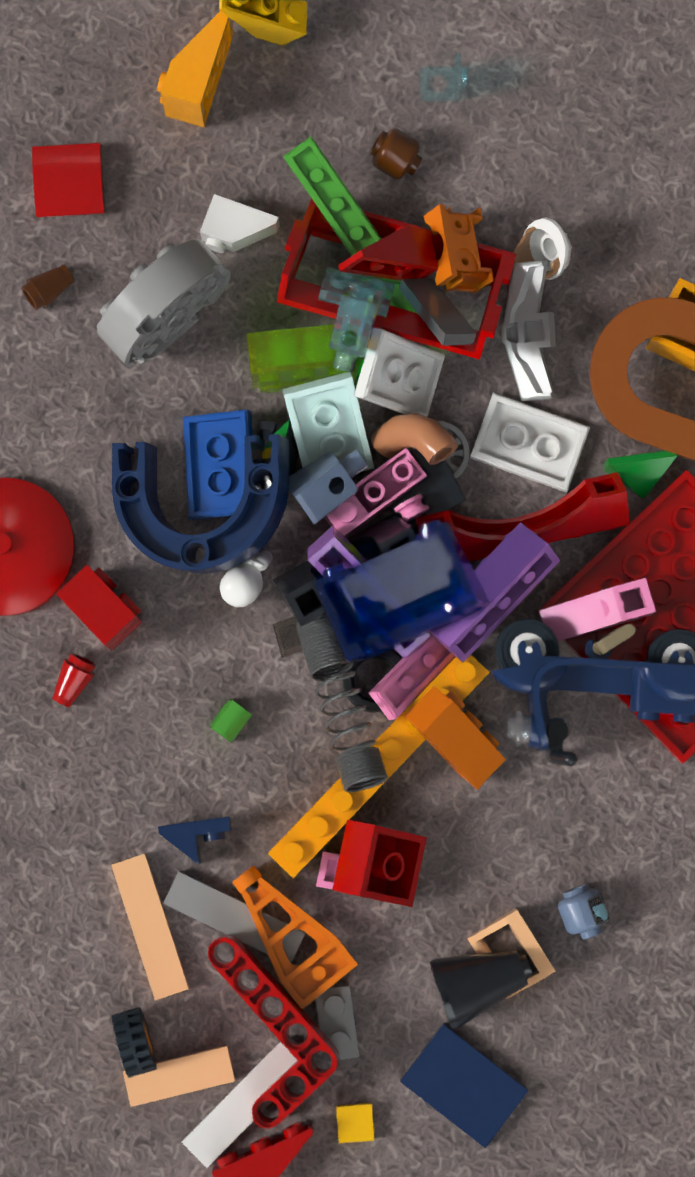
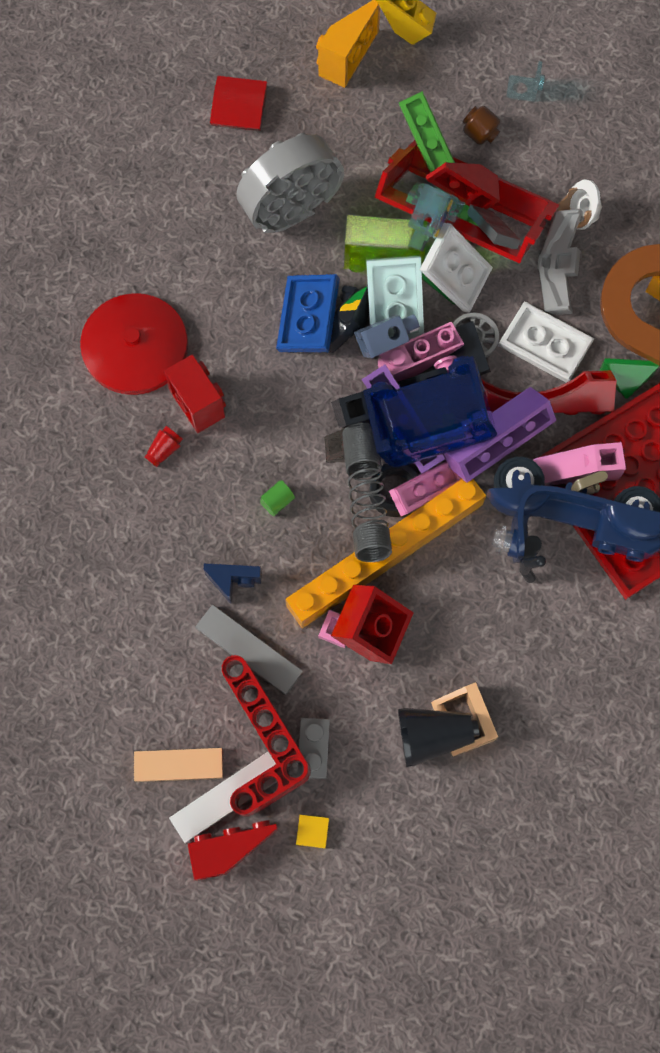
camera: 15 degrees right, 10 degrees down
(46, 287) = (206, 170): reddish brown cone -> none
(134, 1042) = (148, 727): black wheel -> none
(150, 927) = (181, 644): light nougat tile -> none
(227, 545) = (300, 364): dark blue piece -> none
(235, 225) = (357, 152): white slope -> none
(244, 582) = (308, 399): white piece -> none
(319, 971) = (307, 701): orange plate -> none
(414, 432) = (461, 312): nougat cylinder -> none
(456, 736) = (451, 537): orange brick -> none
(460, 261) = (516, 197): orange piece -> none
(463, 1085) = (407, 819): dark blue tile -> none
(583, 911) = (528, 697): sand blue head -> none

